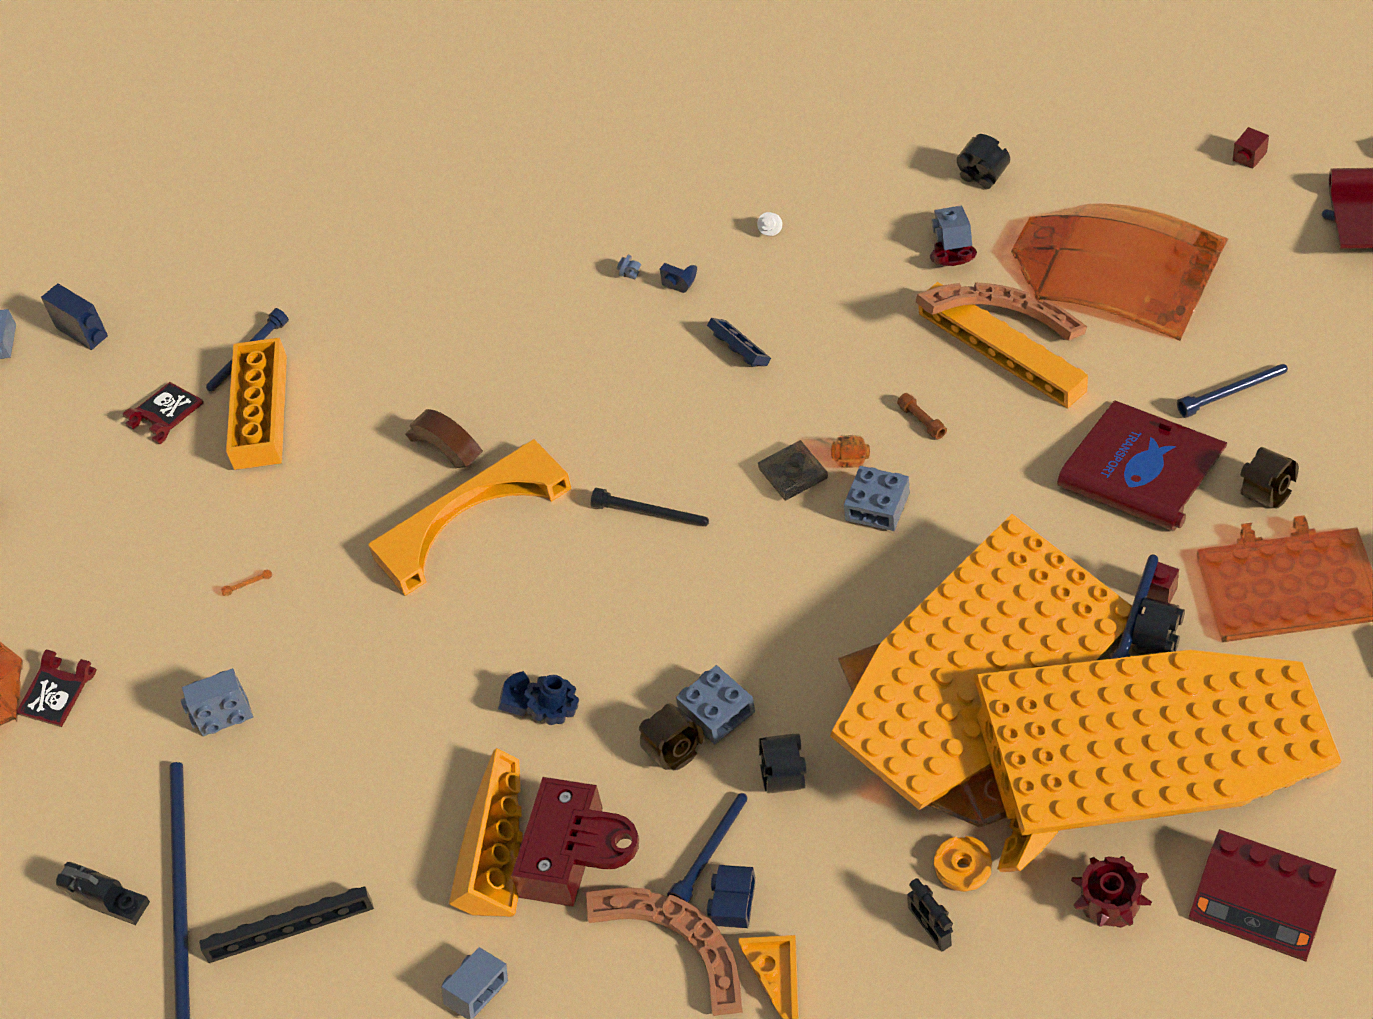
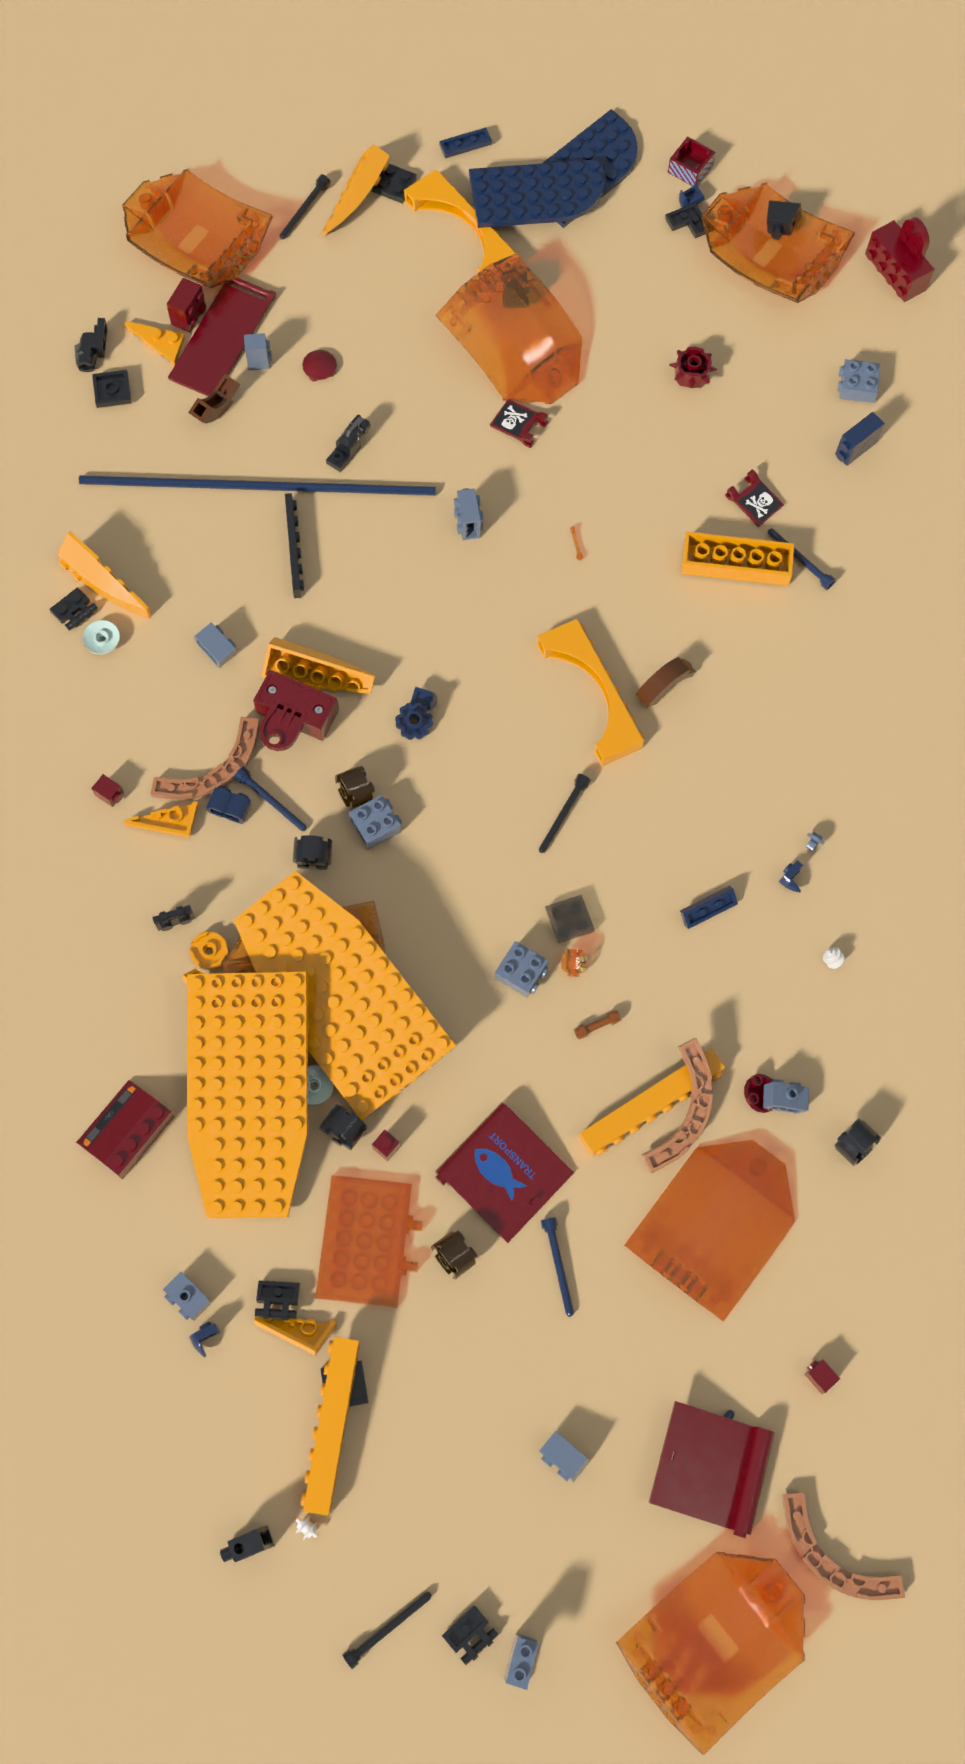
camera: 90 degrees right, 20 degrees up
(1111, 891) = (150, 1022): dark red brick -> none
(1136, 608) = (324, 1092): dark blue piece -> none

